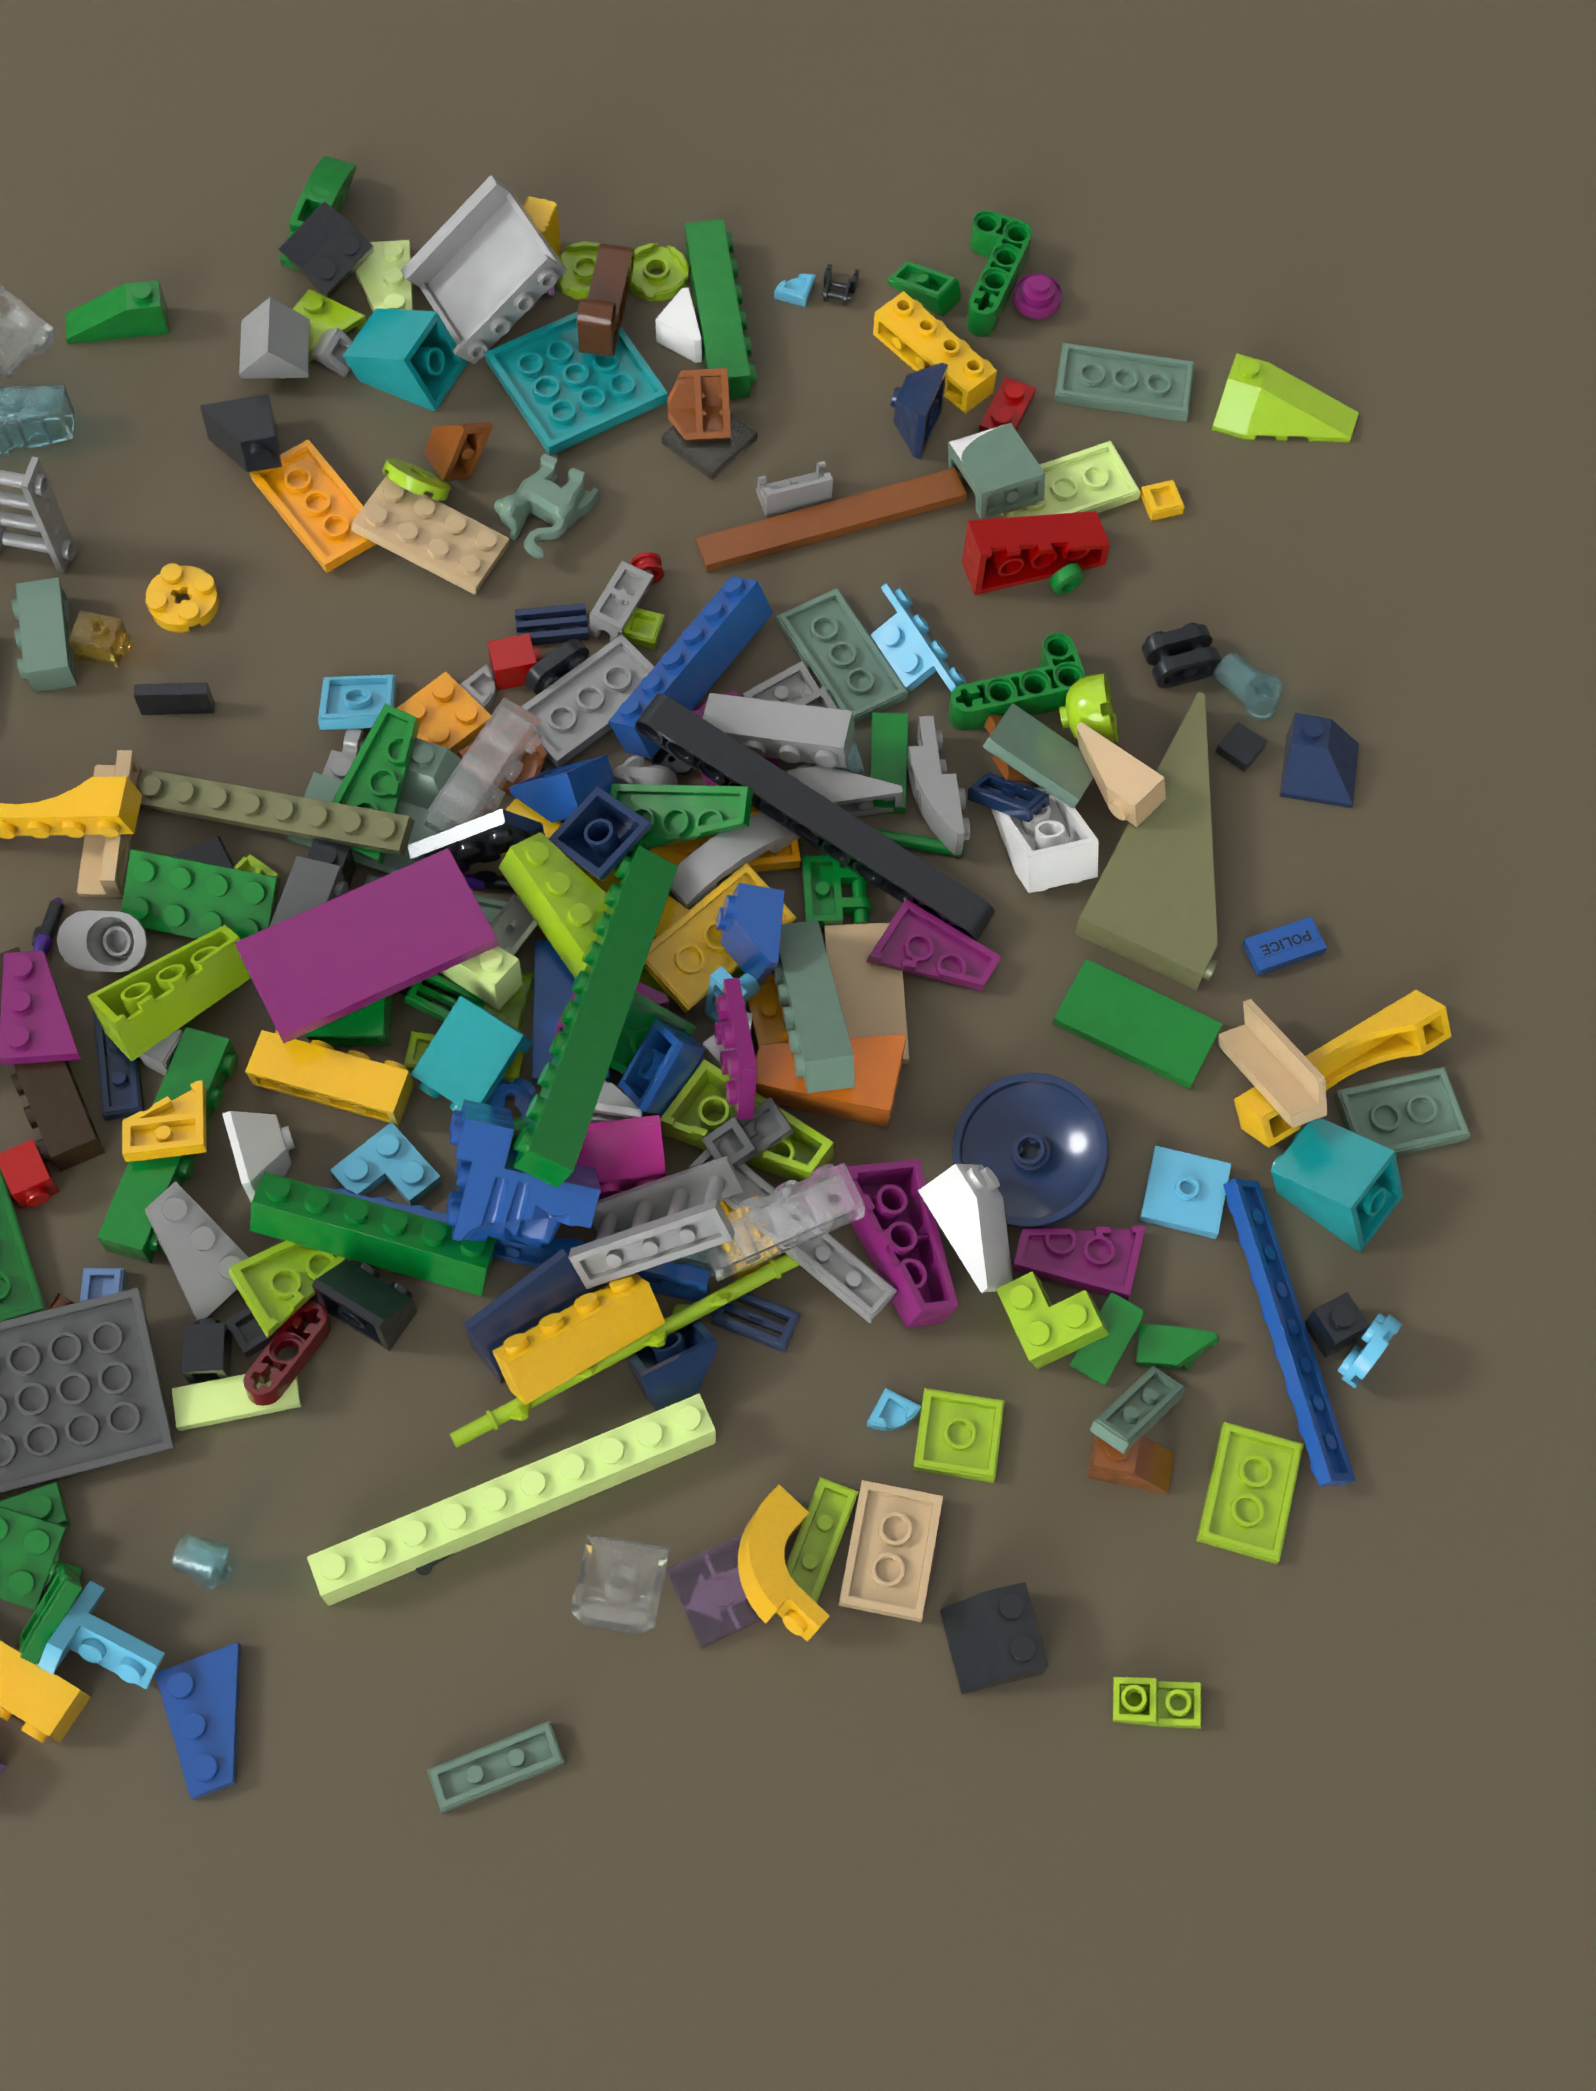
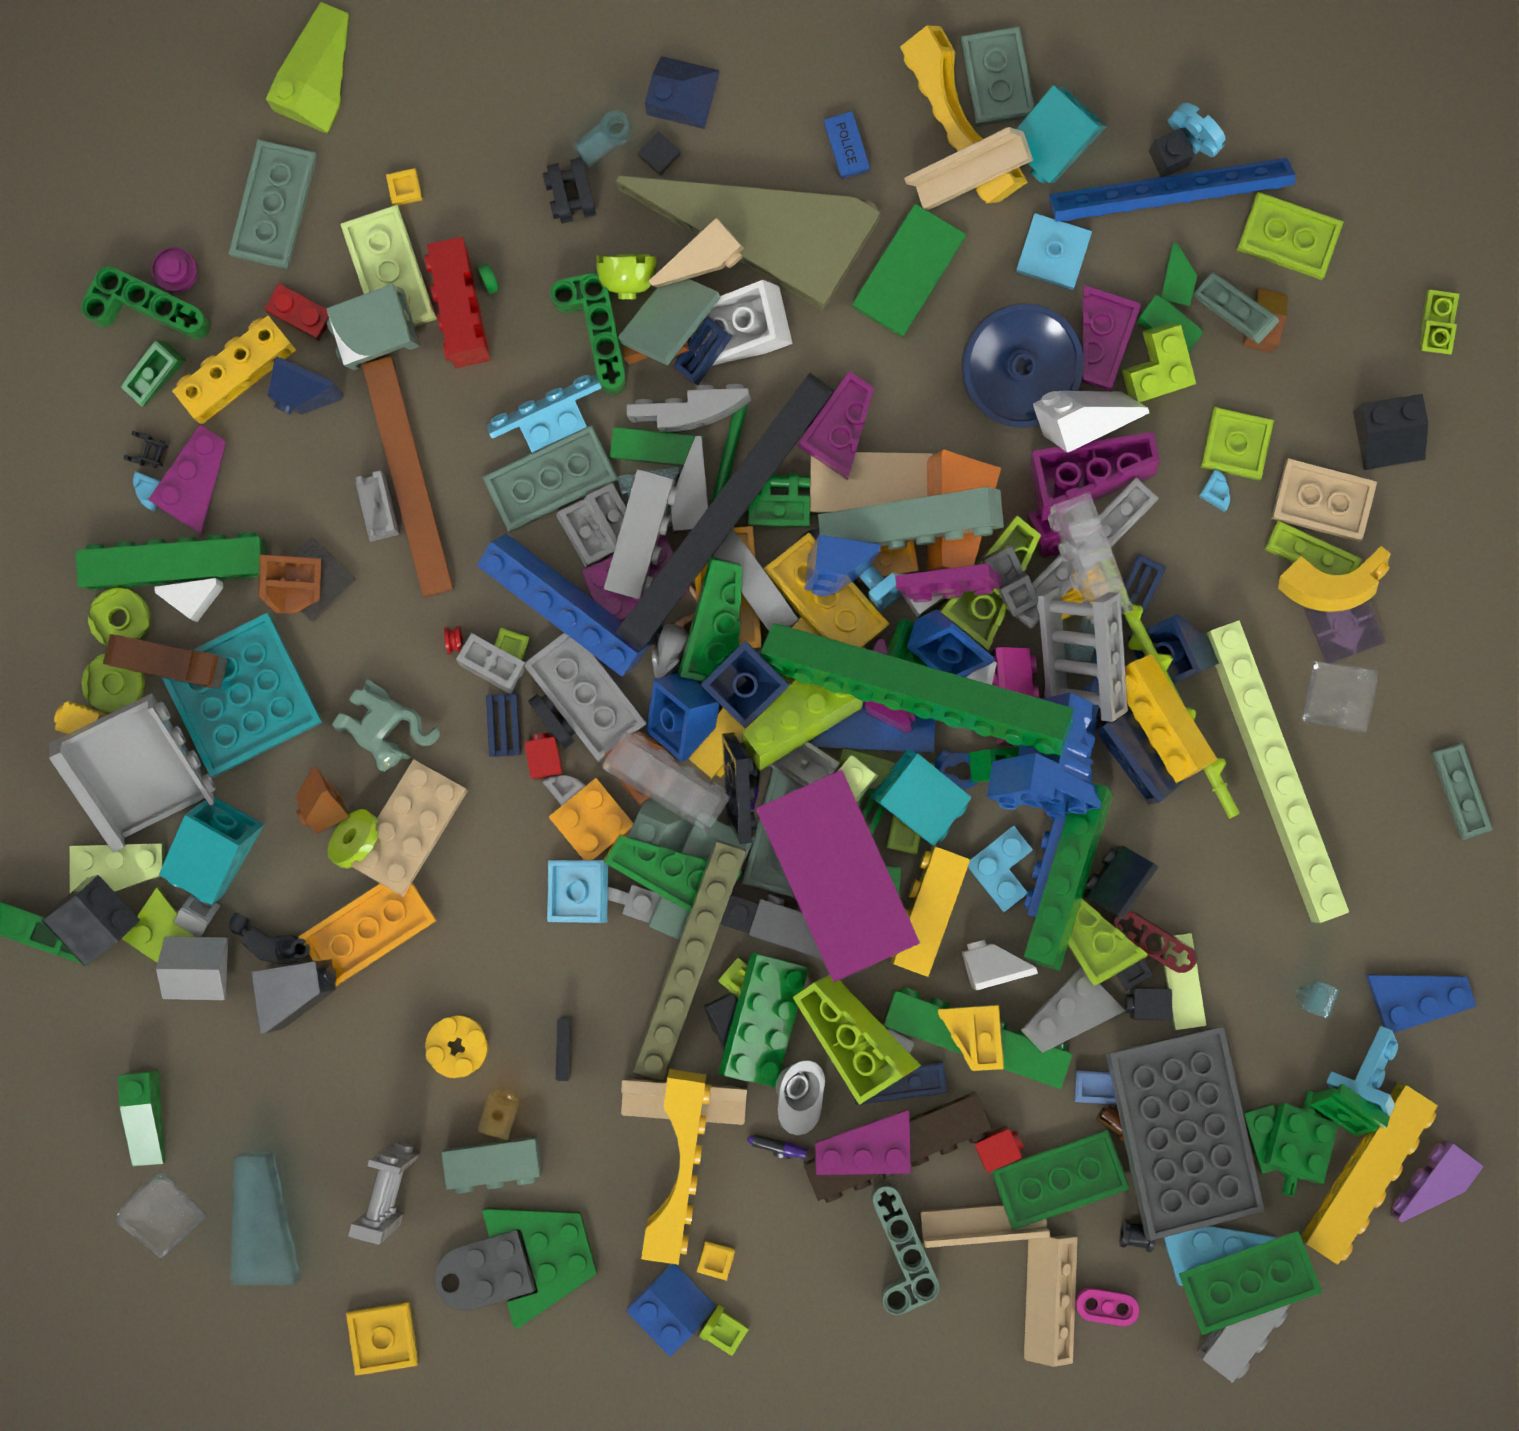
camera: 80 degrees left, 20 degrees up
(298, 411) = (278, 949): none -> black arm
(810, 321) = (191, 480): none -> magenta wing

